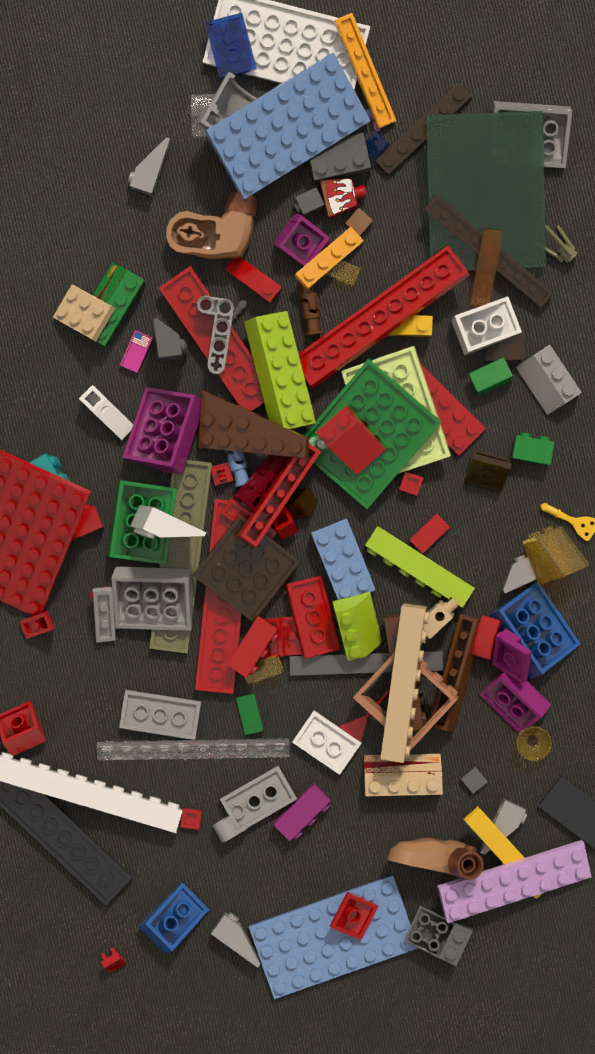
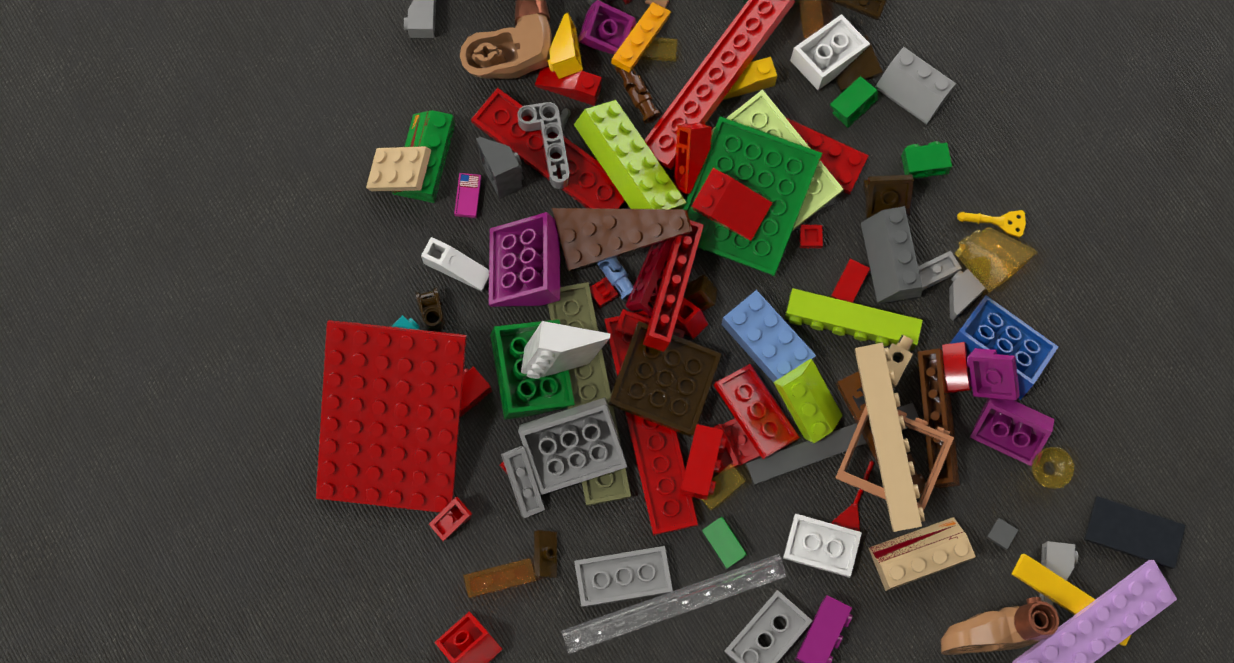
camera: 20 degrees left, 15 degrees down
(62, 683) = (499, 578): none -> clear orange plate
(75, 441) = (430, 306): none -> dark brown piece
(104, 676) = (545, 554): none -> dark brown plate
(259, 250) = (565, 50): none -> yellow slope
(333, 382) = (691, 151): none -> red slope
(470, 524) = (891, 256): none -> dark grey slope
(495, 548) = (938, 269): none -> light grey plate

